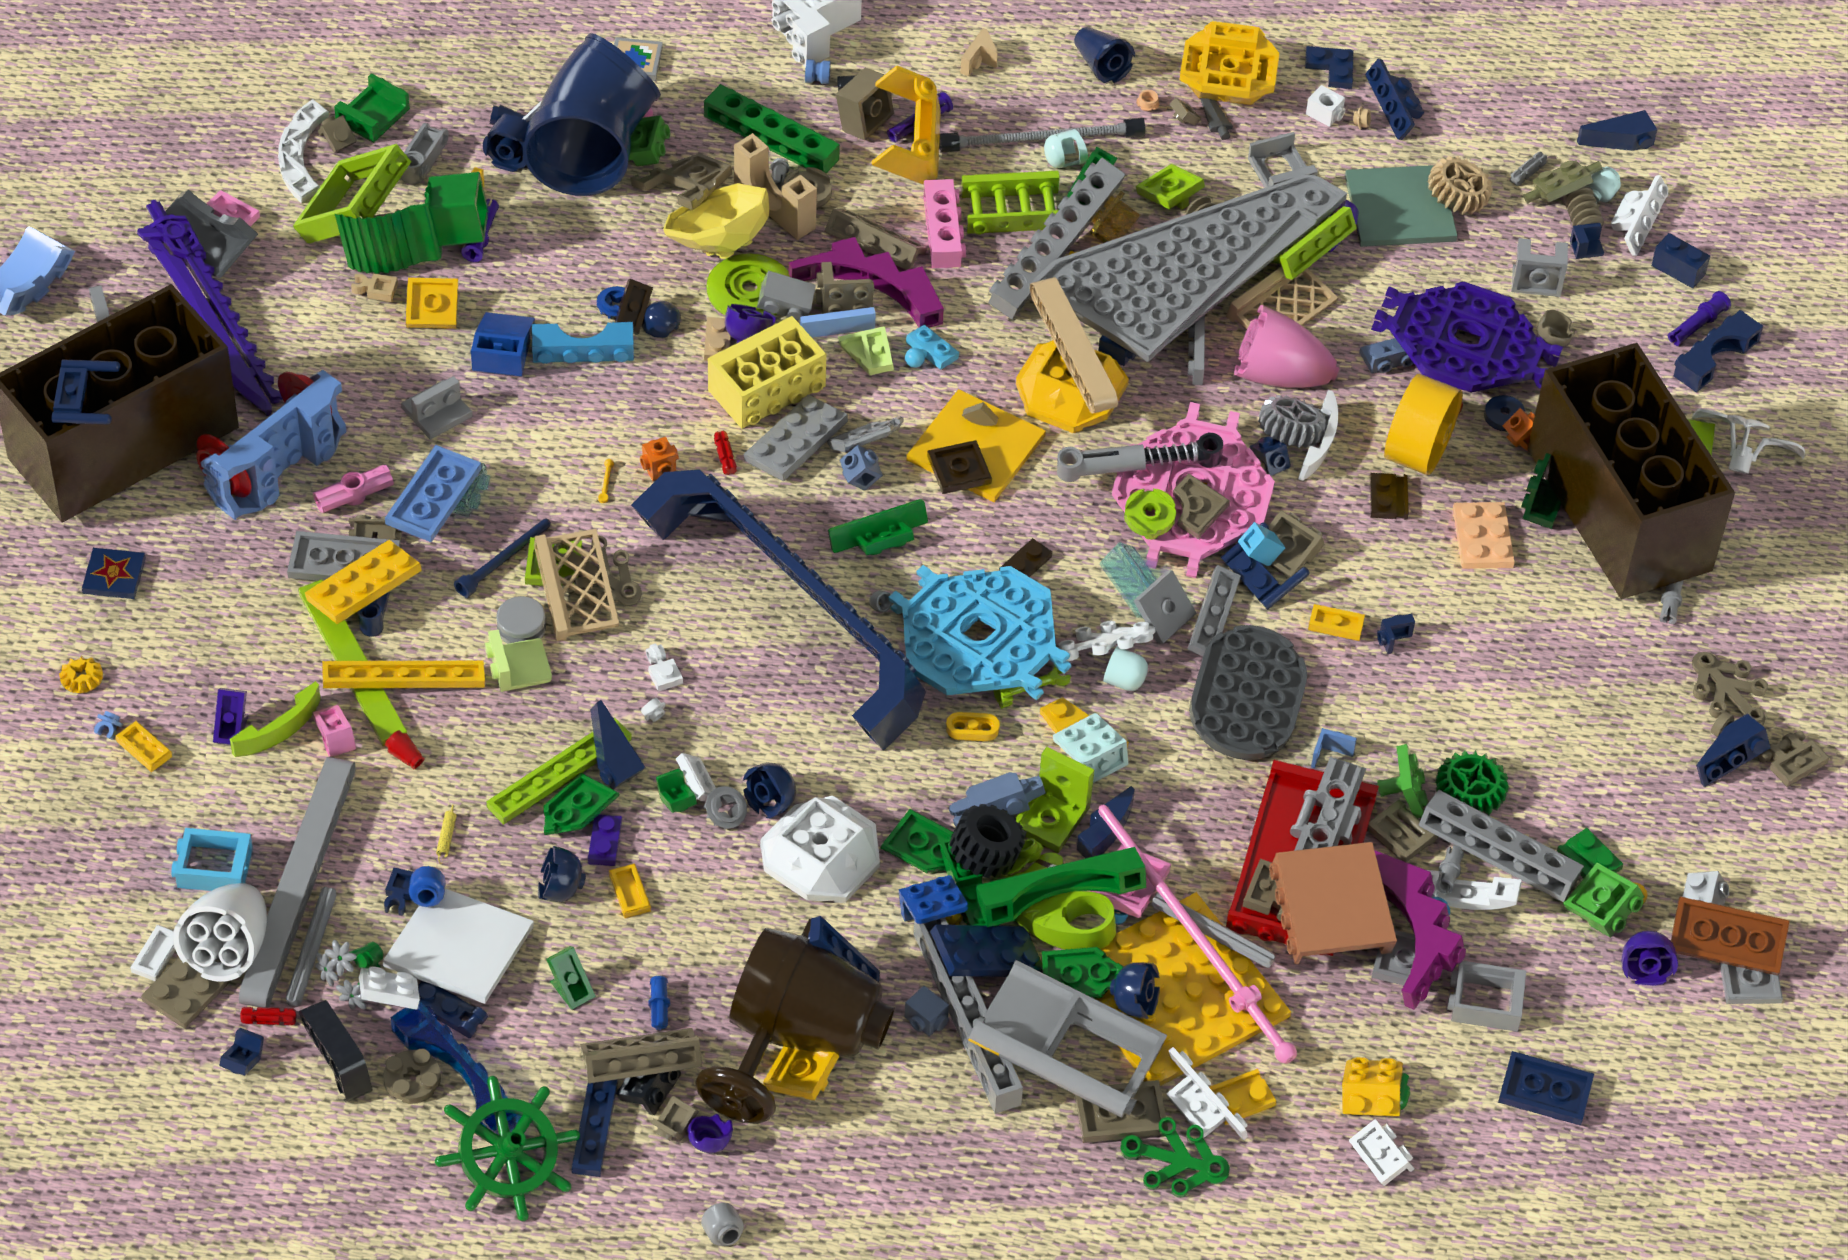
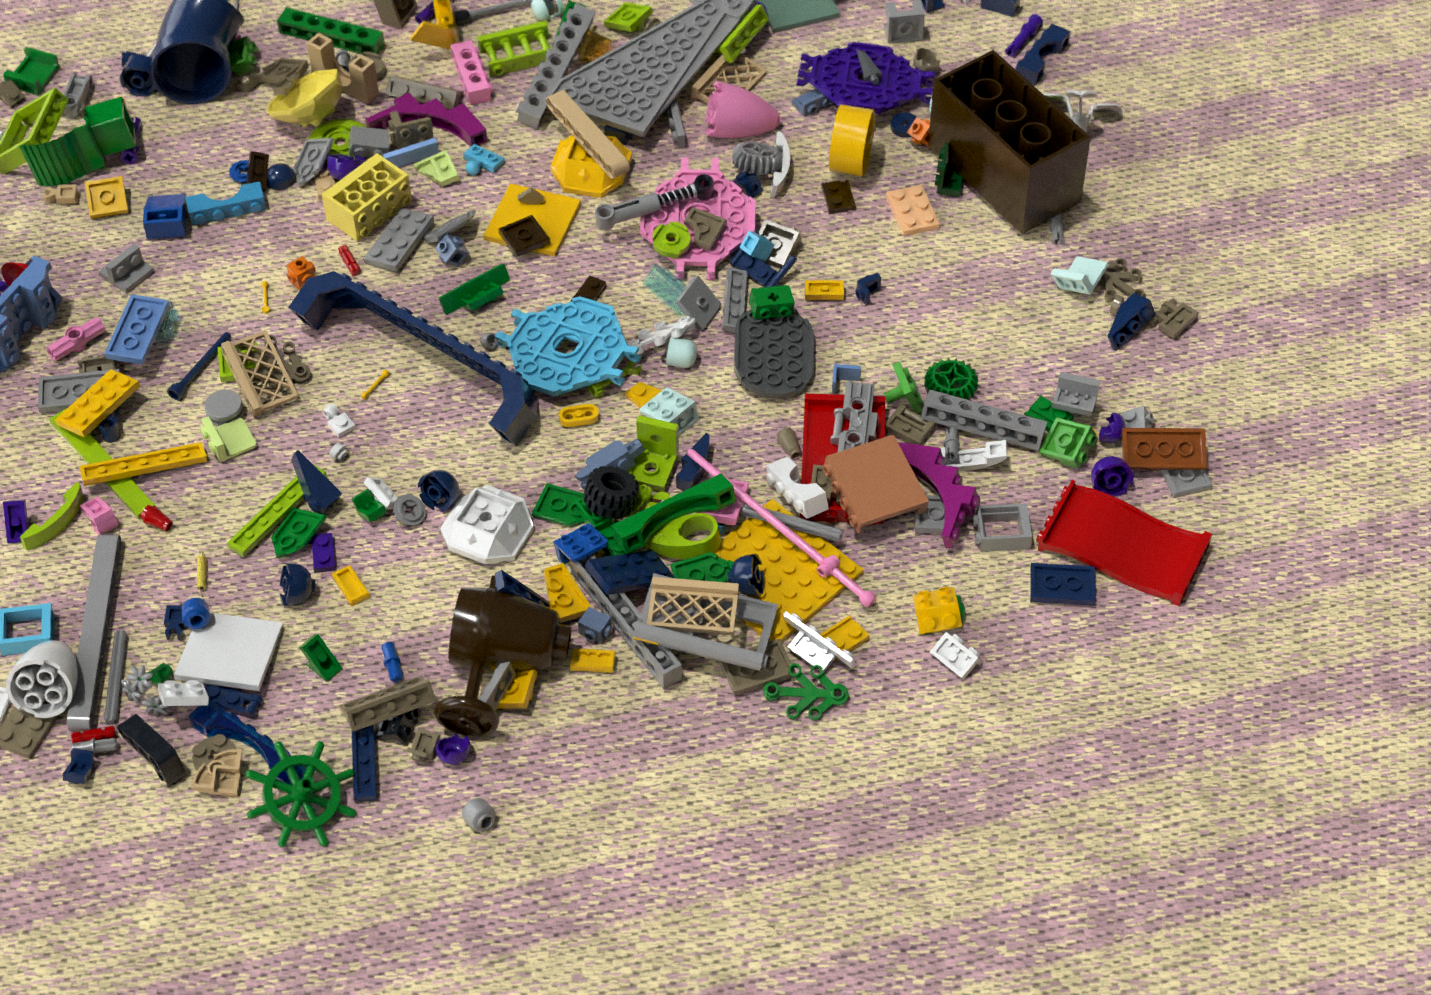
camera: 10 degrees left, 0 degrees up
(270, 1030) = (97, 746): none -> light grey axle
(413, 1102) = (220, 775): none -> tan brick
(707, 304) = (312, 159): none -> light grey tile
(737, 617) = (385, 373): none -> yellow hinge
(784, 1063) = (498, 684): none -> light grey hinge
(897, 961) = (564, 593): none -> yellow wing
(913, 1056) = (592, 660): none -> yellow plate
(1065, 995) = (695, 592): none -> tan fence
(1237, 819) = (788, 440): none -> dark tan cone
(1237, 902) = (806, 498): none -> white arch
(1260, 626) = (771, 302): none -> green brick
(1473, 324) = (869, 69): none -> dark grey bar
(1631, 837) = (1076, 394): none -> light grey bracket
(1643, 1050) = (1124, 542): none -> red panel
(1667, 898) = (1112, 432): none -> dark purple hair
(1685, 674) = (1081, 276): none -> light aqua bracket

